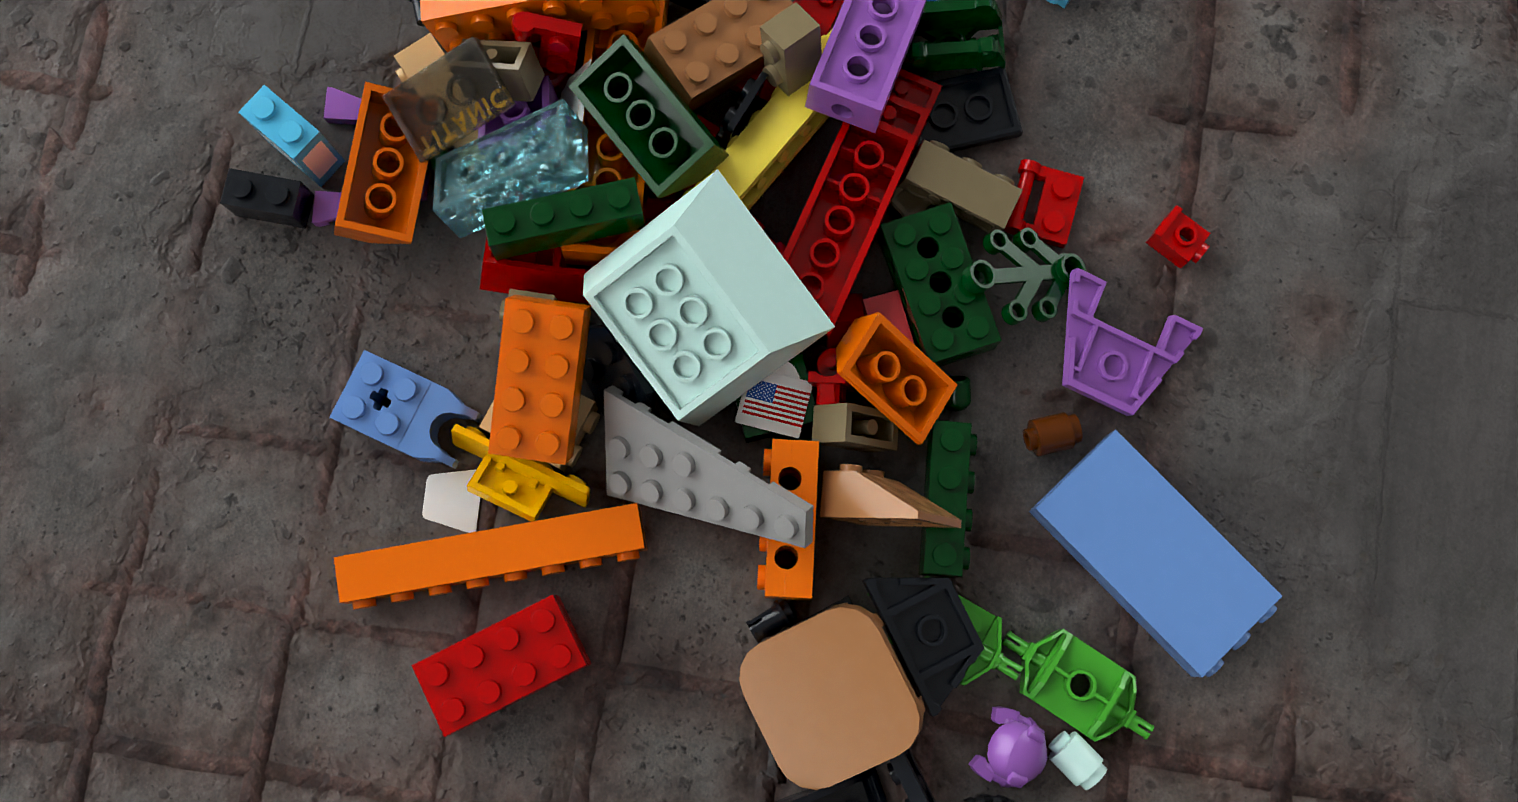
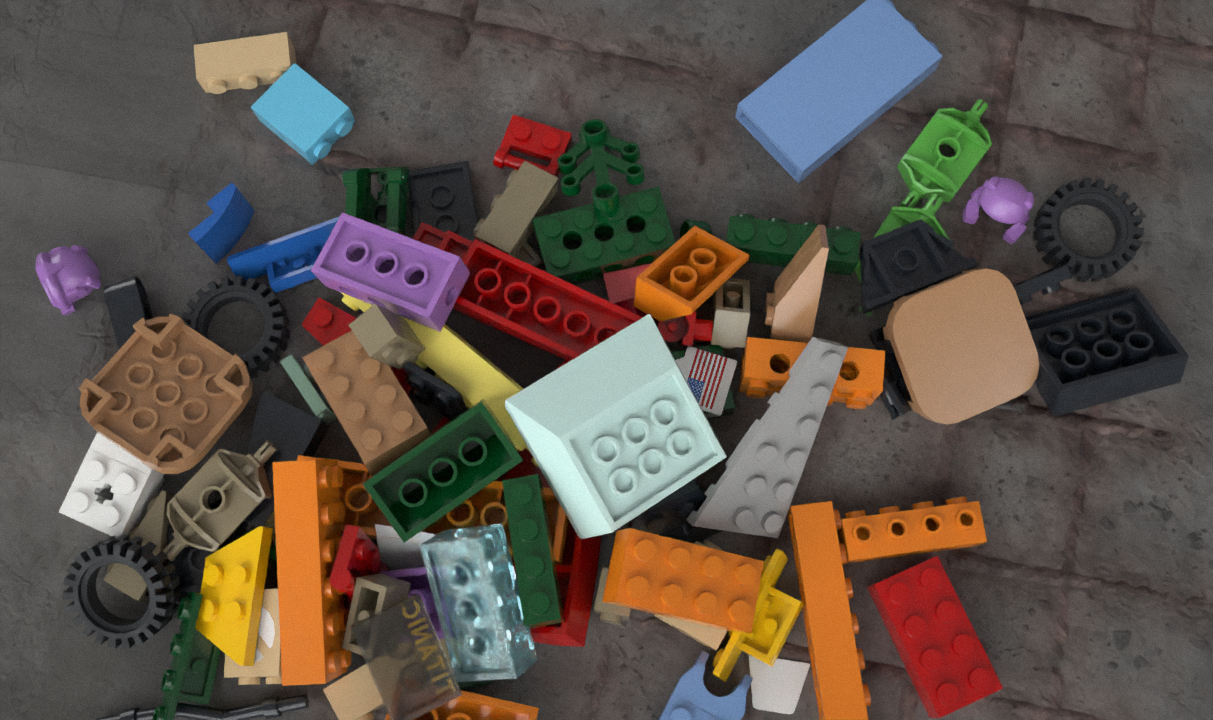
camera: 85 degrees left, 5 degrees down
(617, 641) = (912, 531): none -> orange brick
(1052, 433) = (735, 156): reddish brown brick -> none
(1077, 759) = (1007, 157): light aqua brick -> none
(1109, 362) = (676, 108): medium lavender wing -> none
(1168, 242) = (571, 52): red brick -> none

